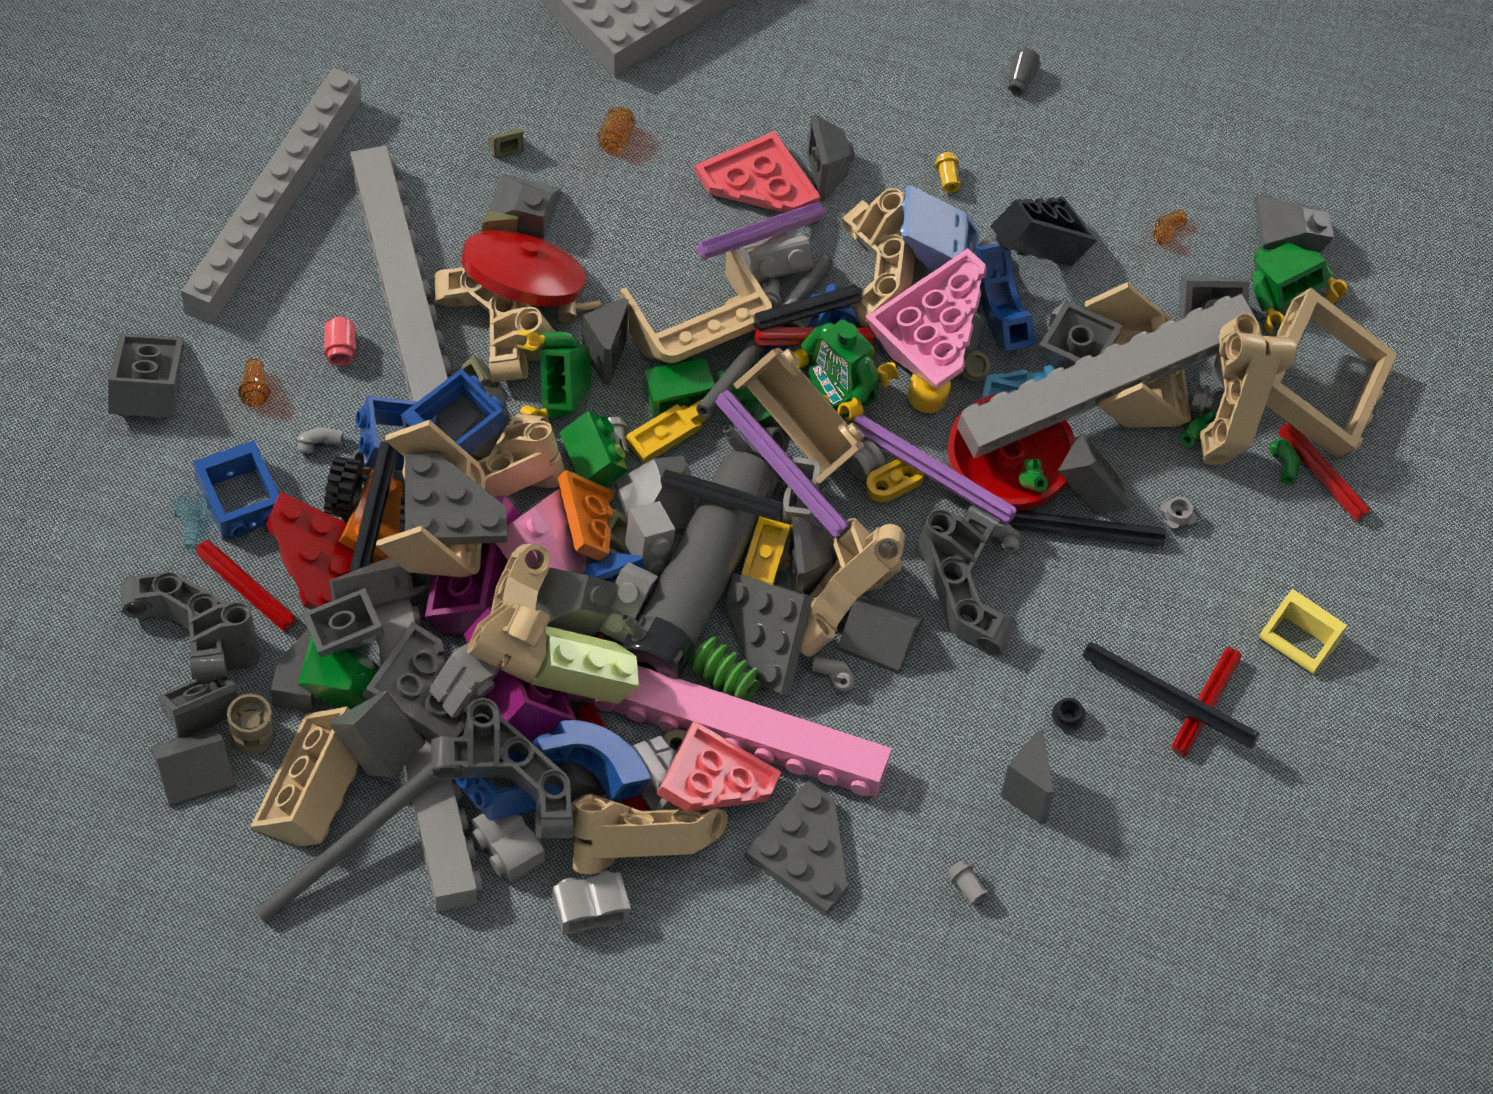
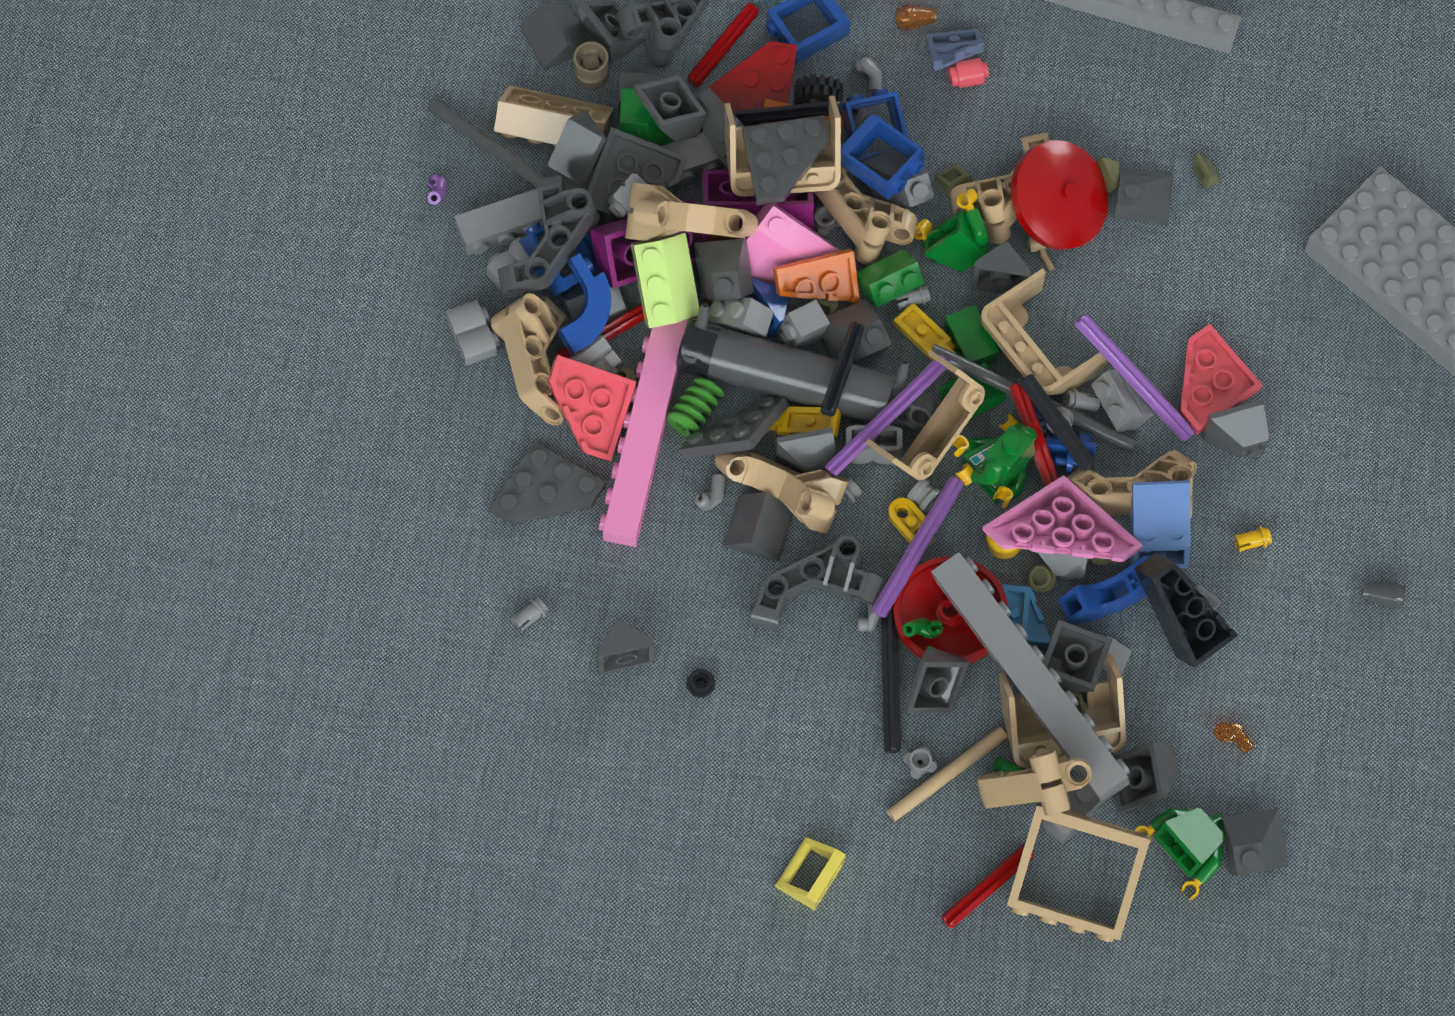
camera: 85 degrees right, 10 degrees up
(304, 349) = (953, 46): none -> sand blue wing
(386, 921) = (439, 185): none -> medium lavender arm
(400, 271) = (1042, 108): light grey brick -> none
(616, 129) = (1237, 256): clear orange brick -> none
(1171, 695) = (726, 760): black axle -> none
(1194, 490) = (947, 774): none -> tan piece
(1210, 694) = (731, 795): red axle -> none
(1285, 450) = (996, 854): green arm -> none

